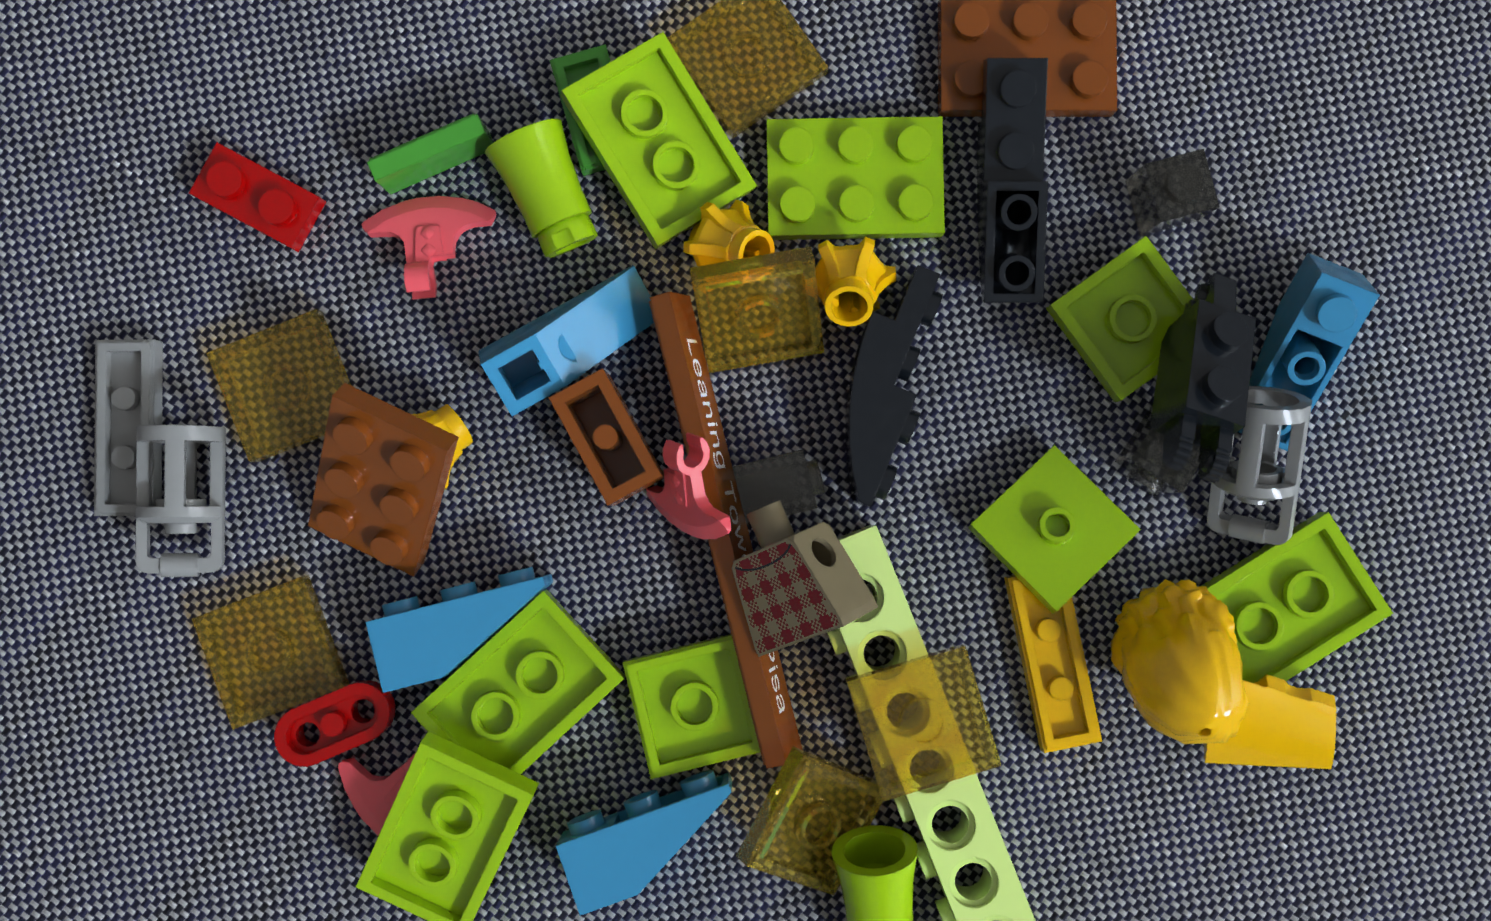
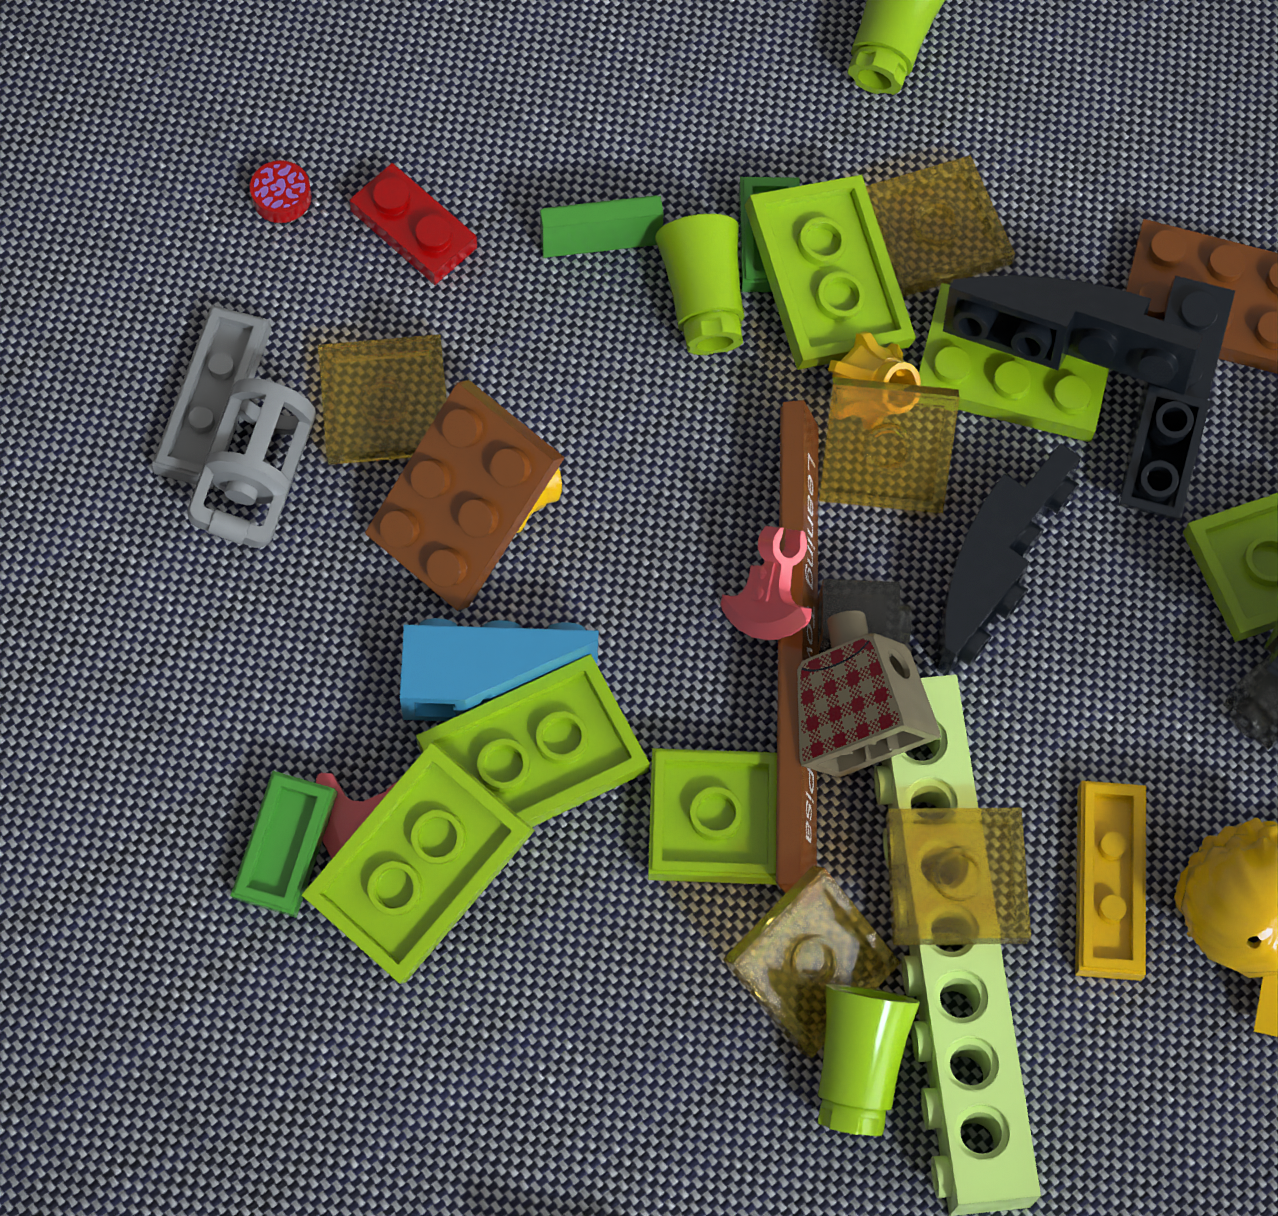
camera: 10 degrees right, 20 degrees down
(123, 200) = (280, 191): none -> red tile
(270, 651) = (283, 646): clear yellow tile -> none
(327, 837) = (284, 844): none -> bright green tile
(337, 721) = (331, 723): red plate -> none
(429, 234) = (571, 300): coral piece -> none
(567, 340) = (686, 424): dark azure slope -> none
(607, 437) = (703, 522): dark orange brick -> none
(624, 851) = (605, 938): dark azure slope -> none
(851, 281) = (995, 425): yellow rock -> none
(878, 139) = (1062, 317): none -> black slope
(1054, 529) = (1141, 742): lime plate -> none

